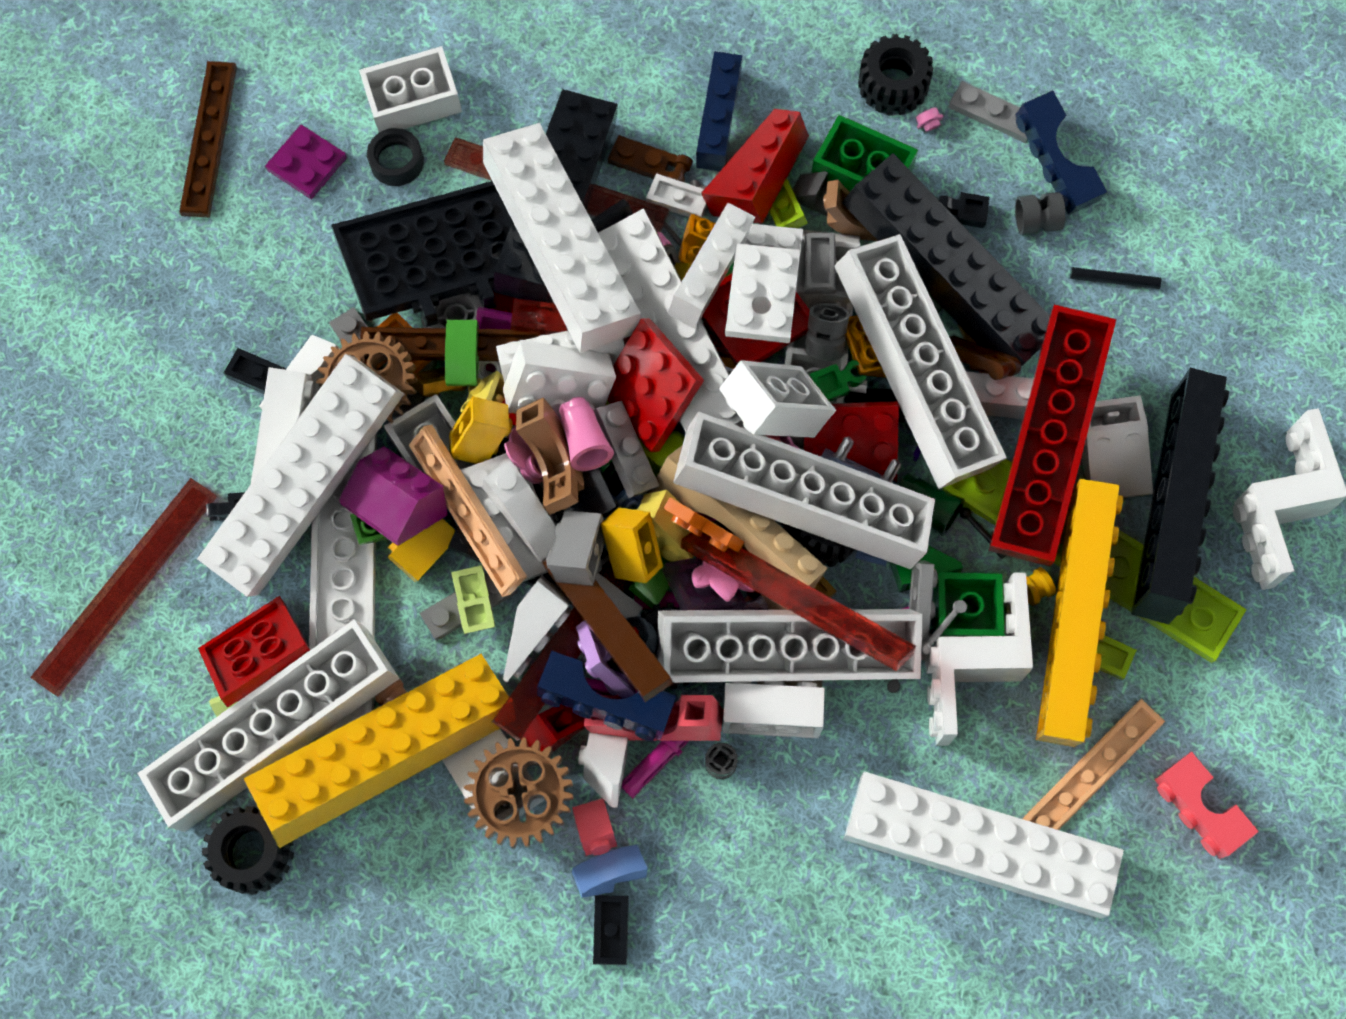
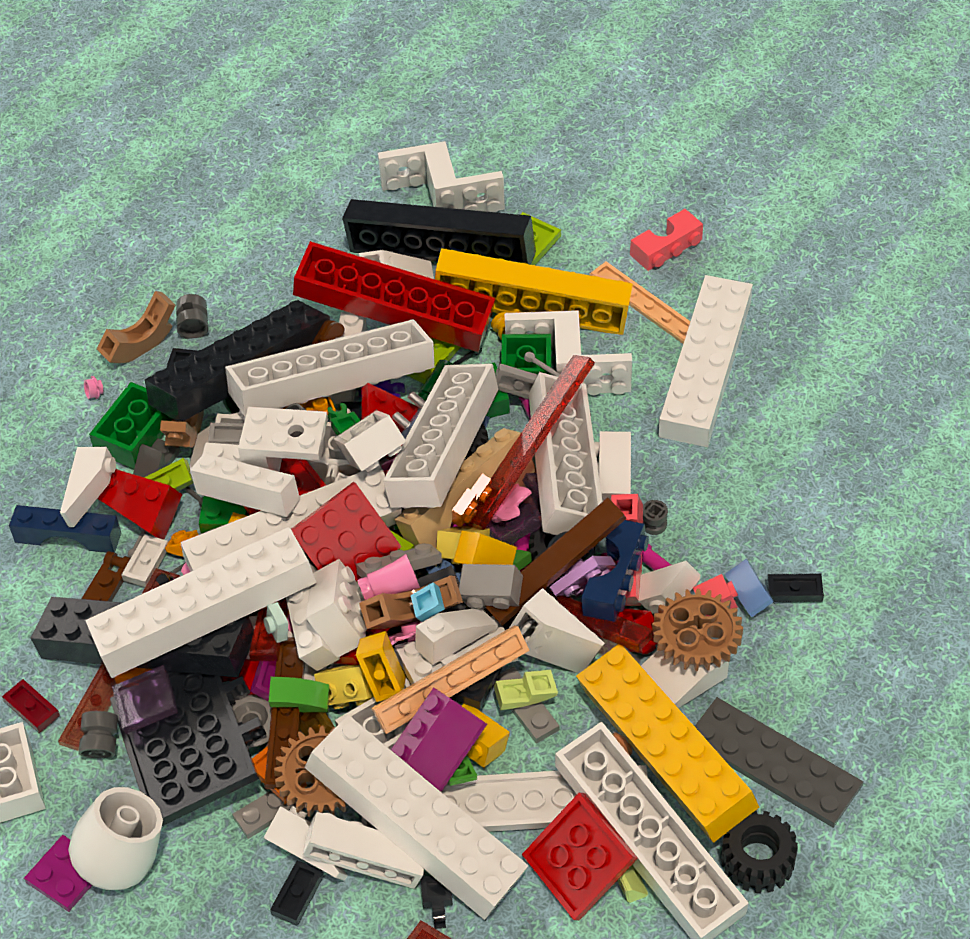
camera: 90 degrees left, 20 degrees down
(314, 172) = (116, 839): none -> white piece
(372, 883) = (778, 762): none -> dark grey plate
(398, 176) = (65, 771): black tyre -> none
(449, 169) = (98, 732): none -> dark grey wheel
(476, 207) = (144, 699): none -> clear purple plate
(497, 107) = (31, 706): none -> dark red plate
(542, 319) = (276, 622): none -> light aqua plate
(543, 472) = (427, 602): none -> medium azure plate
(755, 113) = (87, 480): none -> white slope
(890, 93) = (52, 419): black tyre -> none
(987, 110) = (86, 352): light grey plate -> none
(1004, 157) = (141, 337): none -> medium nougat arch
(1076, 183) = (115, 309): dark blue arch -> none
(1115, 278) = (250, 278): black bar -> none

